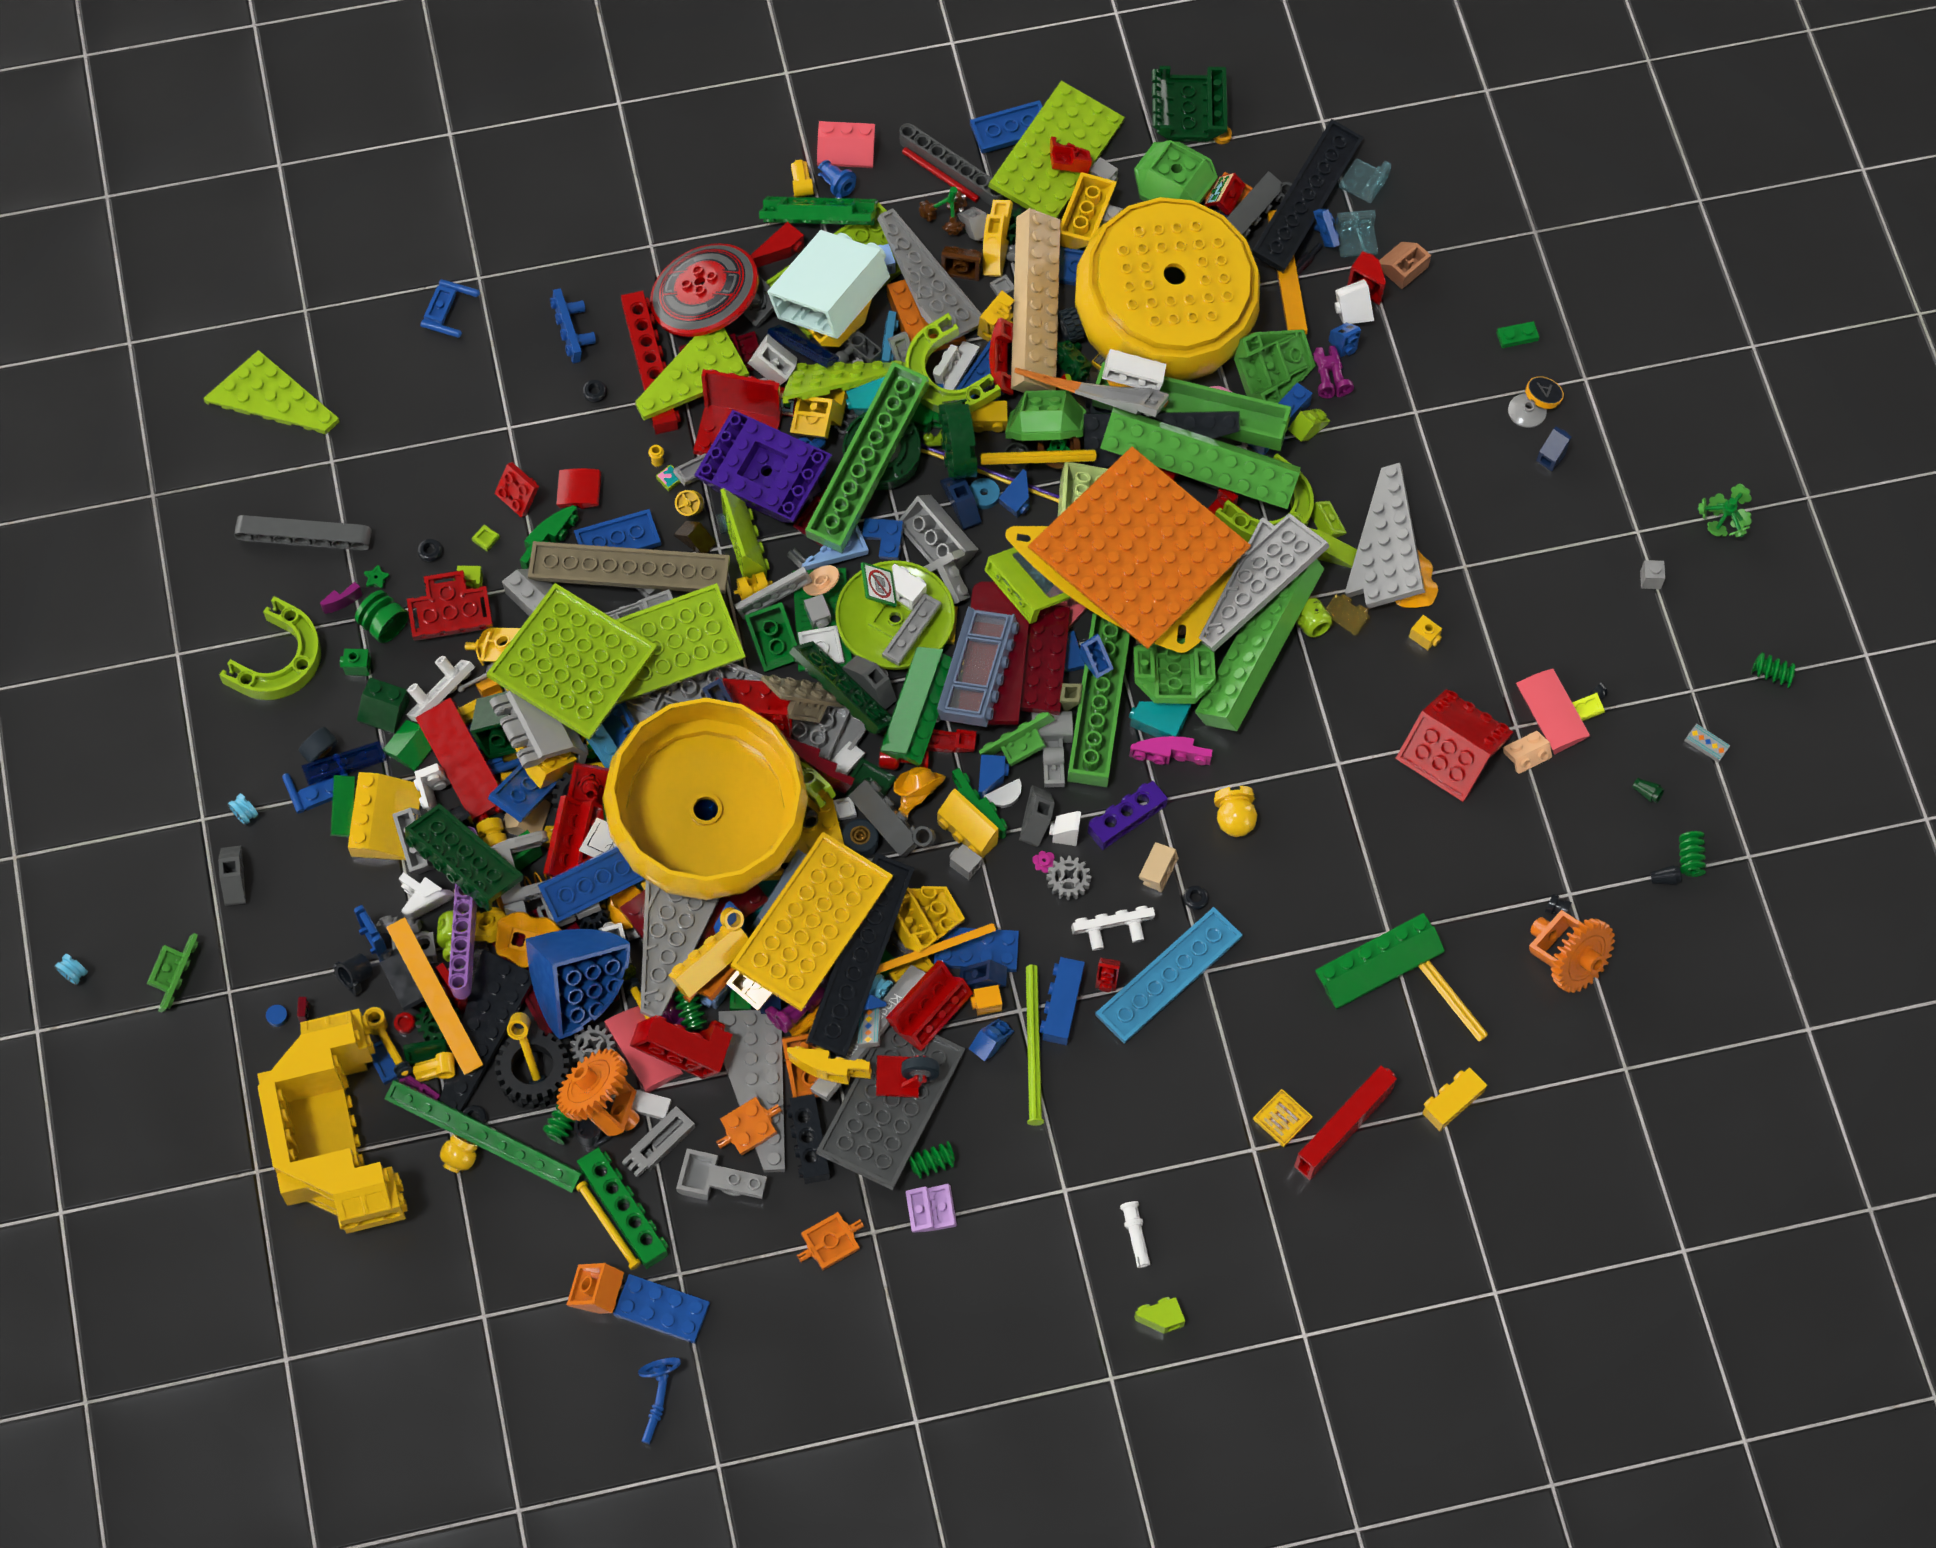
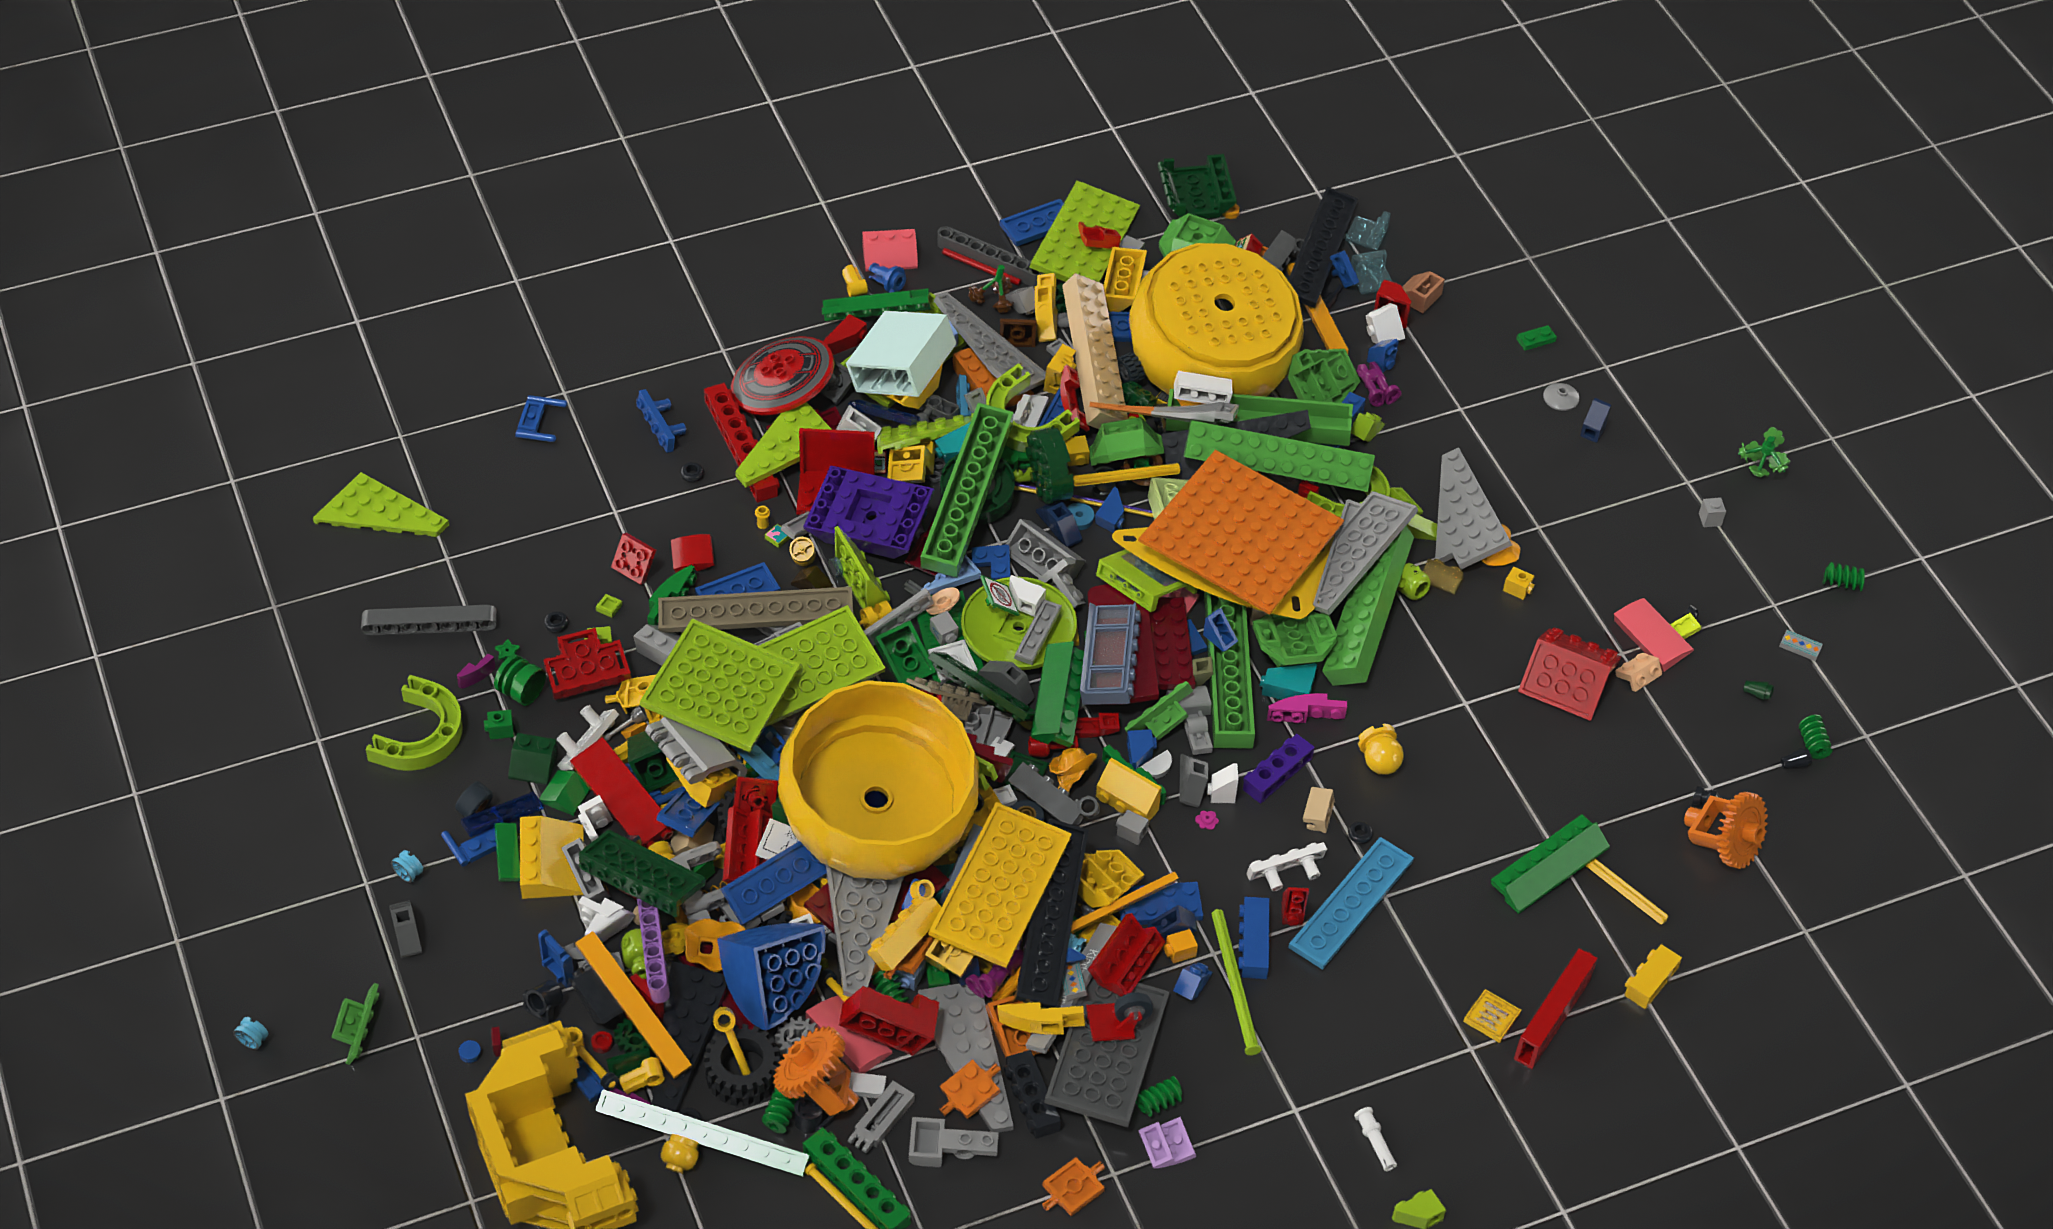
camera: 10 degrees left, 15 degrees down
(1068, 887) = (1235, 829): light grey gear -> none
(1544, 392) = (1573, 378): tile -> none

